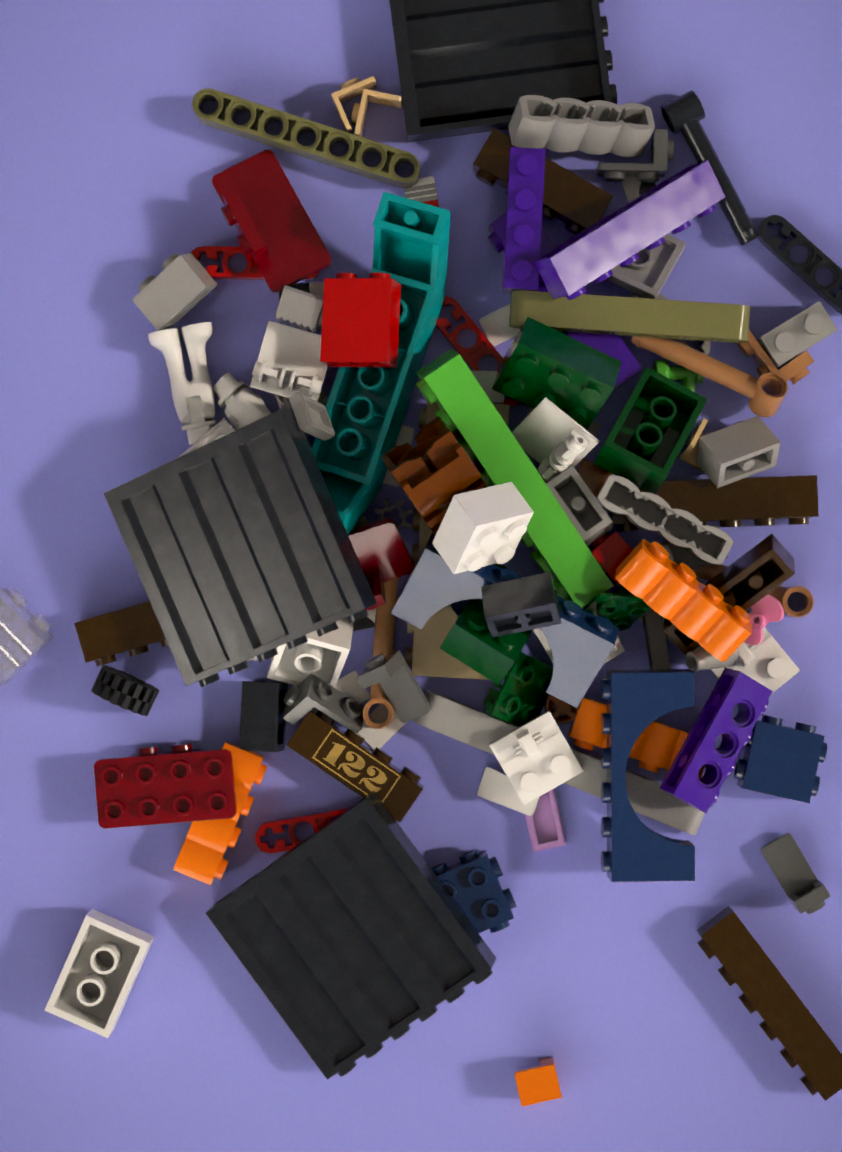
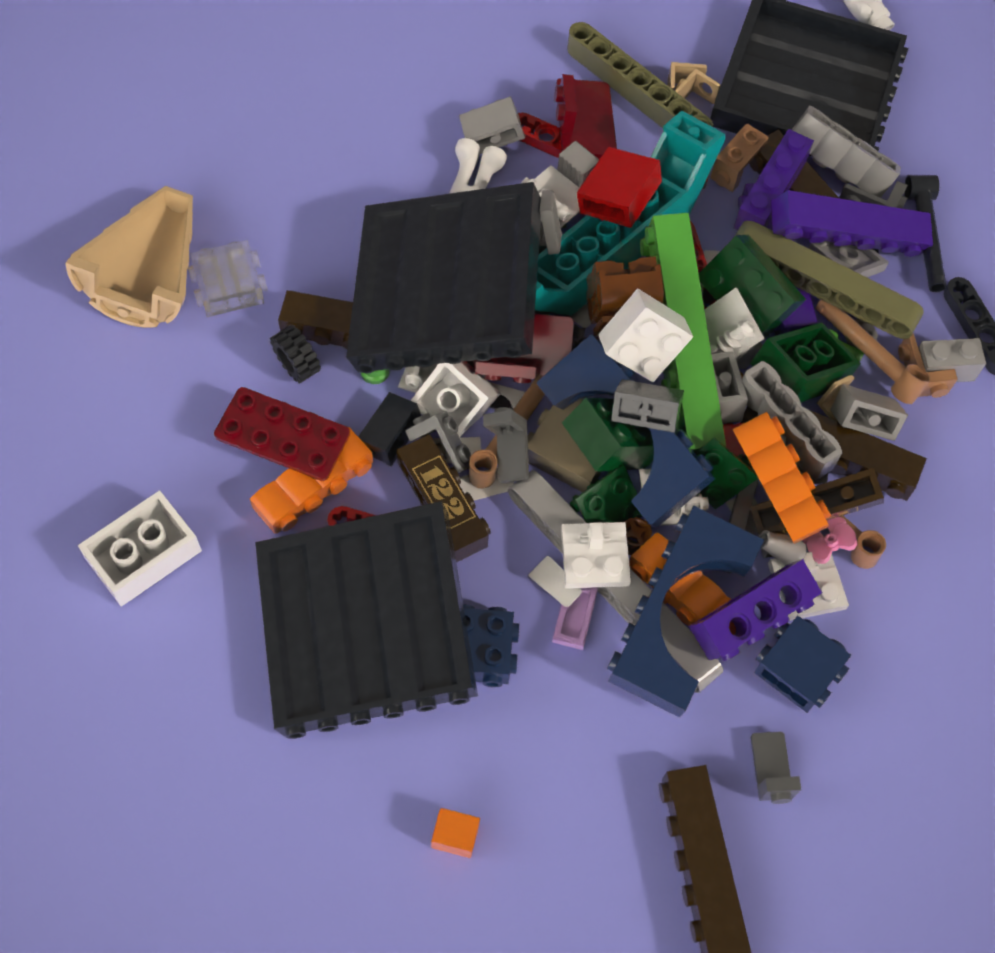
camera: 20 degrees right, 25 degrees down
(465, 183) = (736, 156): none -> medium nougat bracket

